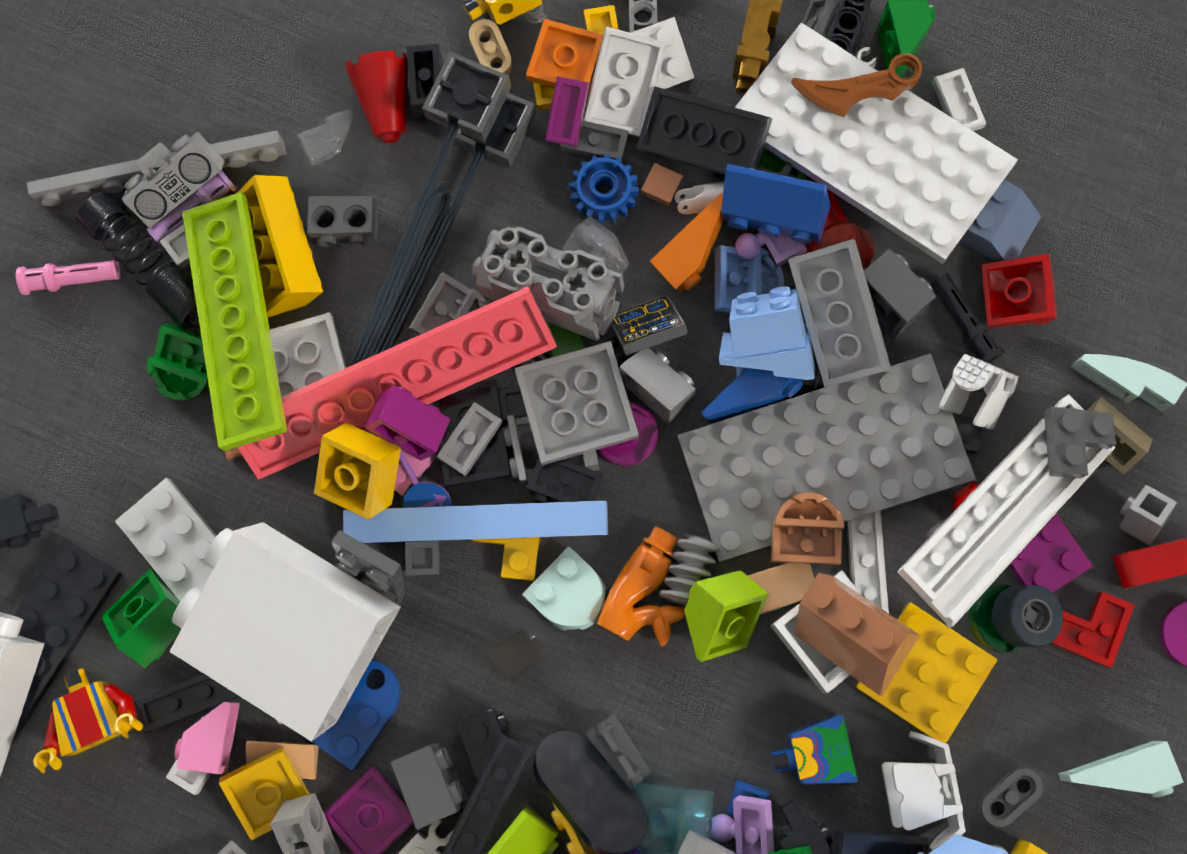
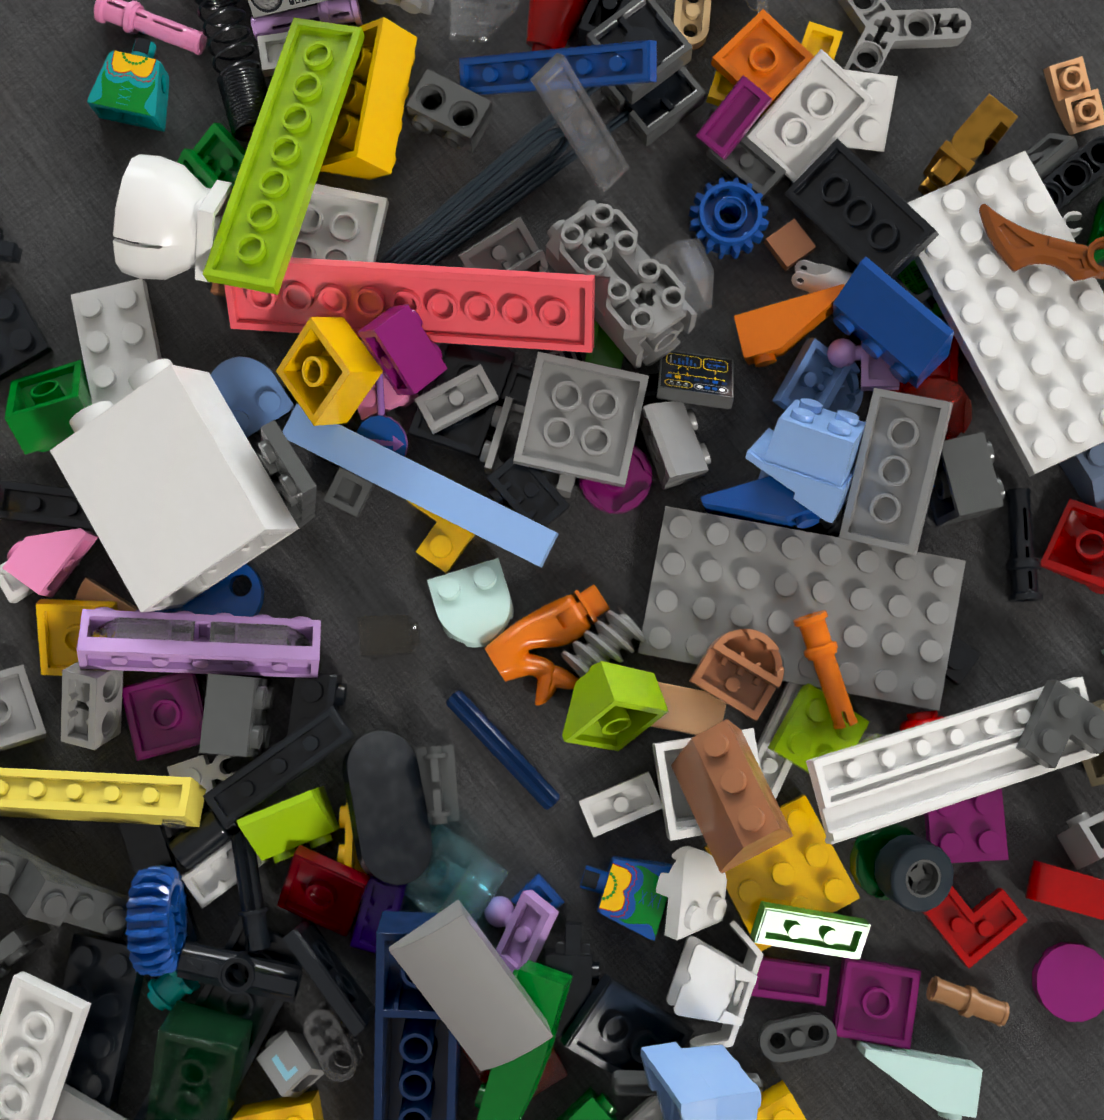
camera: 20 degrees right, 5 degrees up
(80, 332) = (132, 88): none -> torso
(167, 419) = (168, 217): none -> white plate
(303, 520) = (251, 392): none -> medium blue slope
(369, 742) = (199, 643): none -> lavender piece
(414, 144) = (593, 66): none -> blue tile
(451, 176) = (580, 122): none -> clear tile
(655, 696) = (503, 749): none -> dark blue axle
(771, 688) = (620, 804): none -> white plate
(861, 482) = (822, 652): none -> orange pin
(868, 725) = (693, 892): none -> white slope
(888, 544) = (809, 729): none -> lime plate
(972, 375) = (994, 605): white piece -> none
(973, 706) = (809, 930): none -> tile
(982, 754) = (792, 980): none -> magenta tile
(1056, 735) = (876, 1002): none -> magenta tile
(1125, 694) = (968, 1001): none -> medium nougat pin

